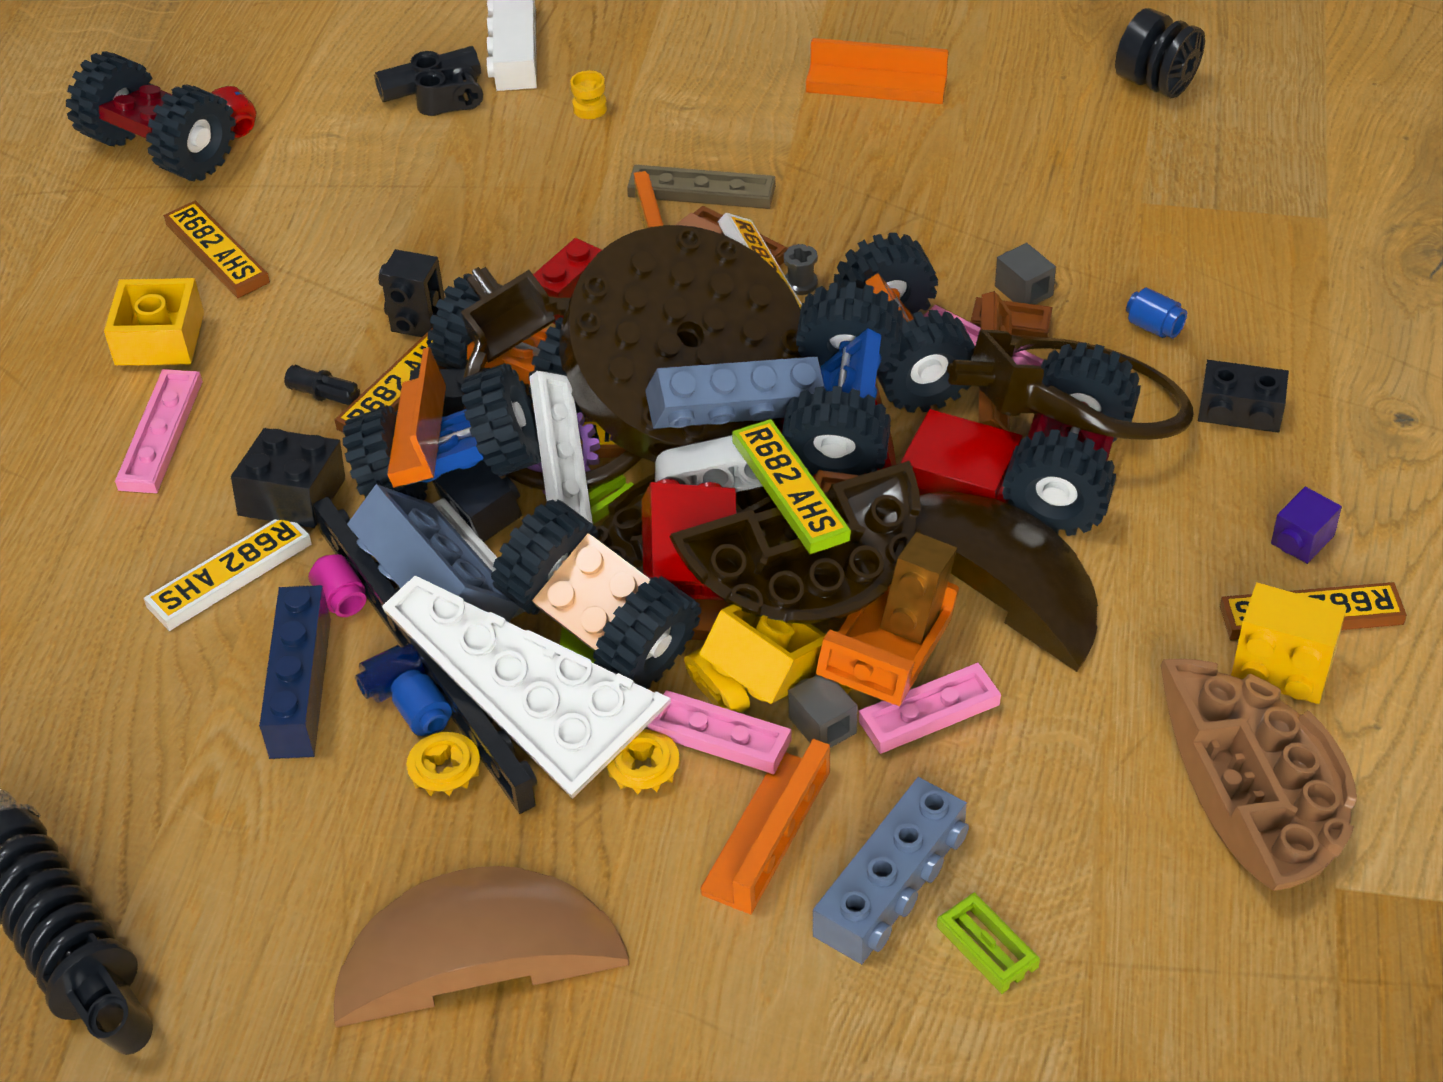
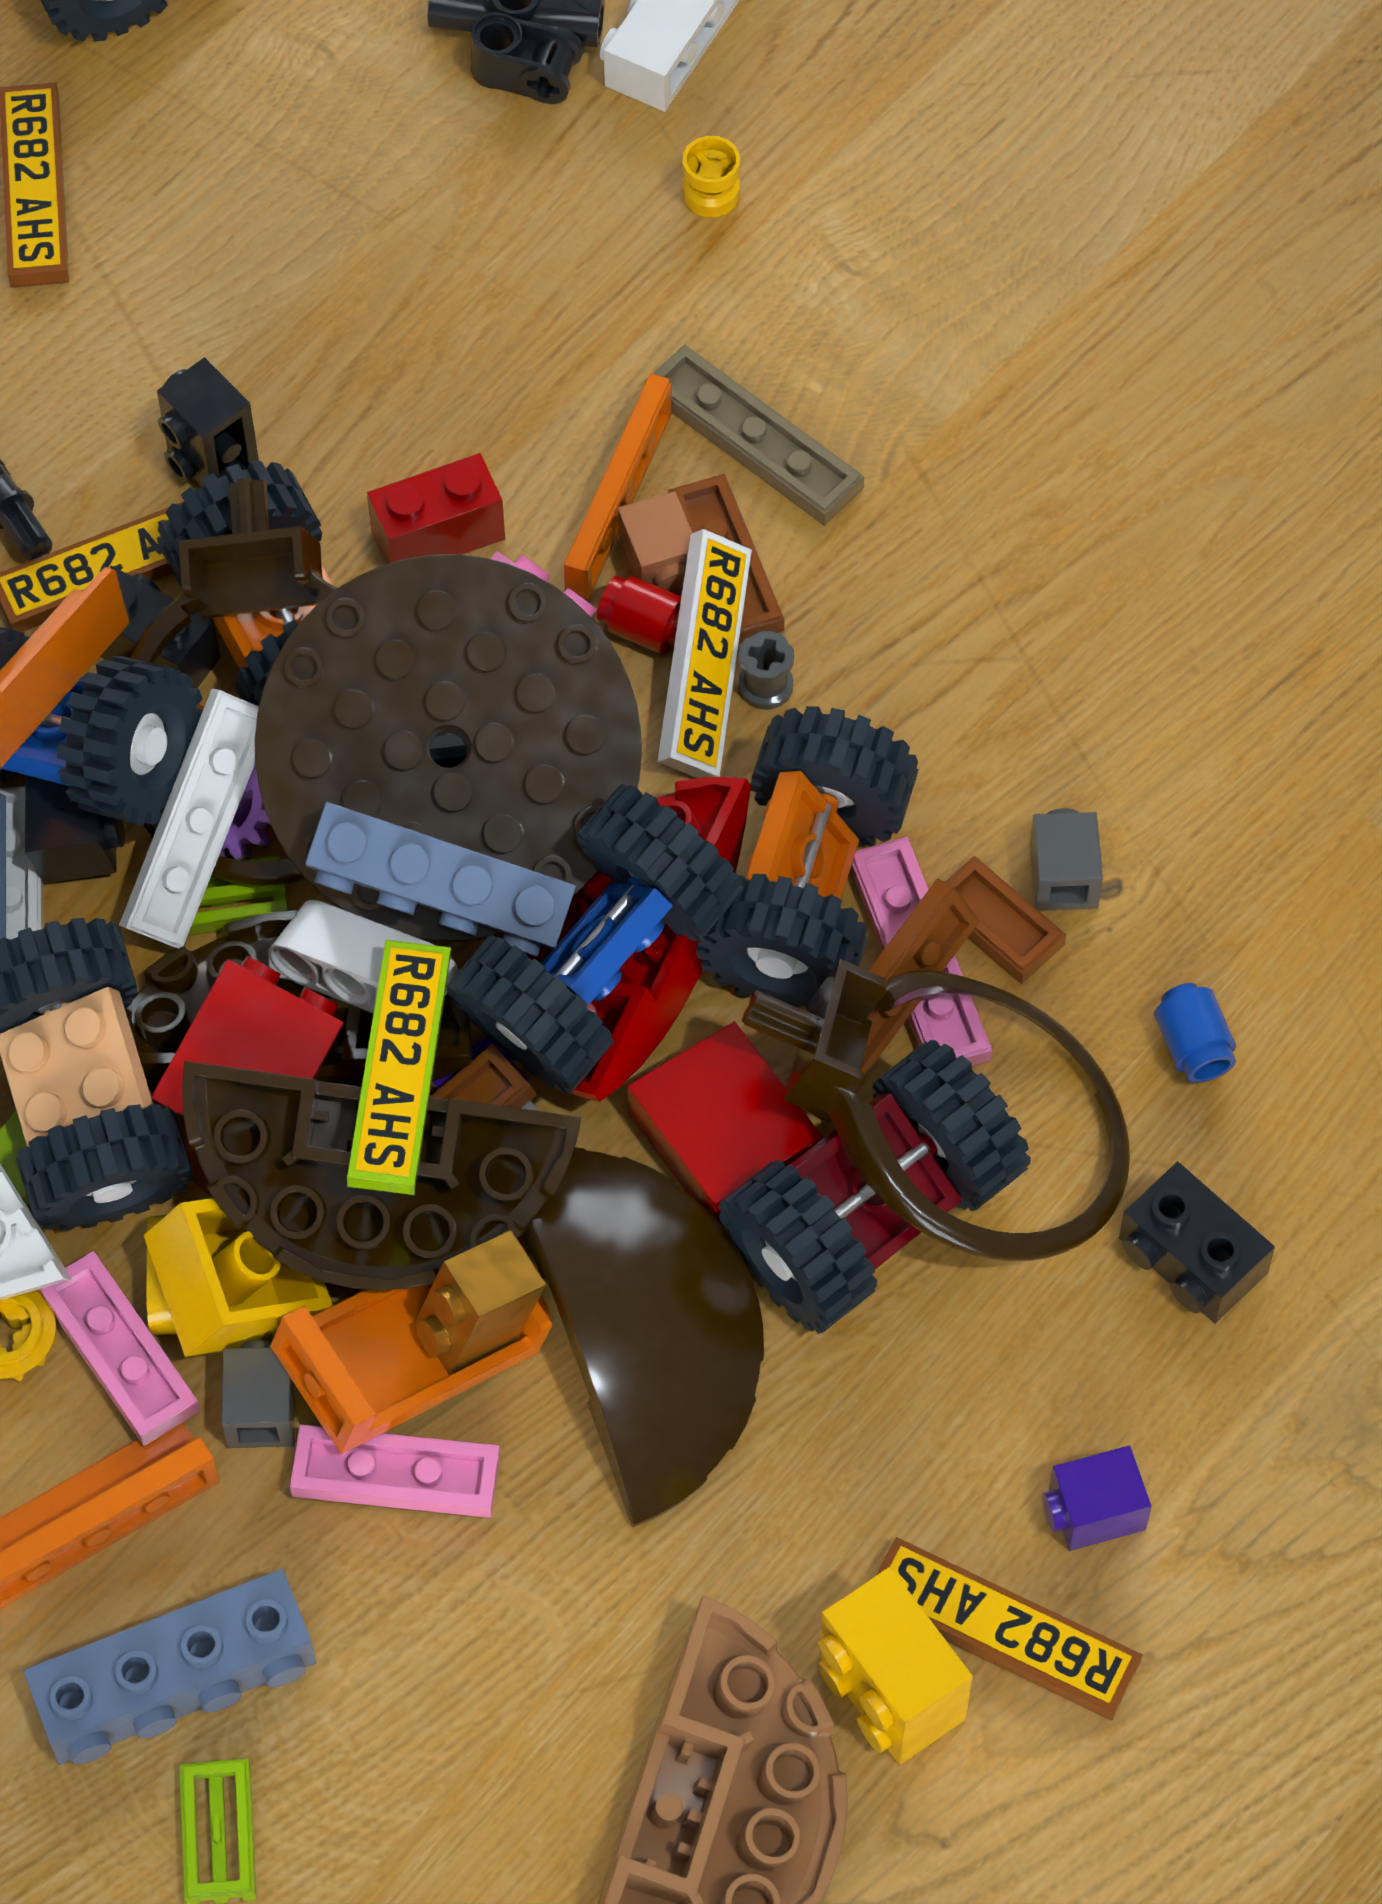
camera: 30 degrees right, 15 degrees up
(877, 71) = (1158, 362): orange panel -> none

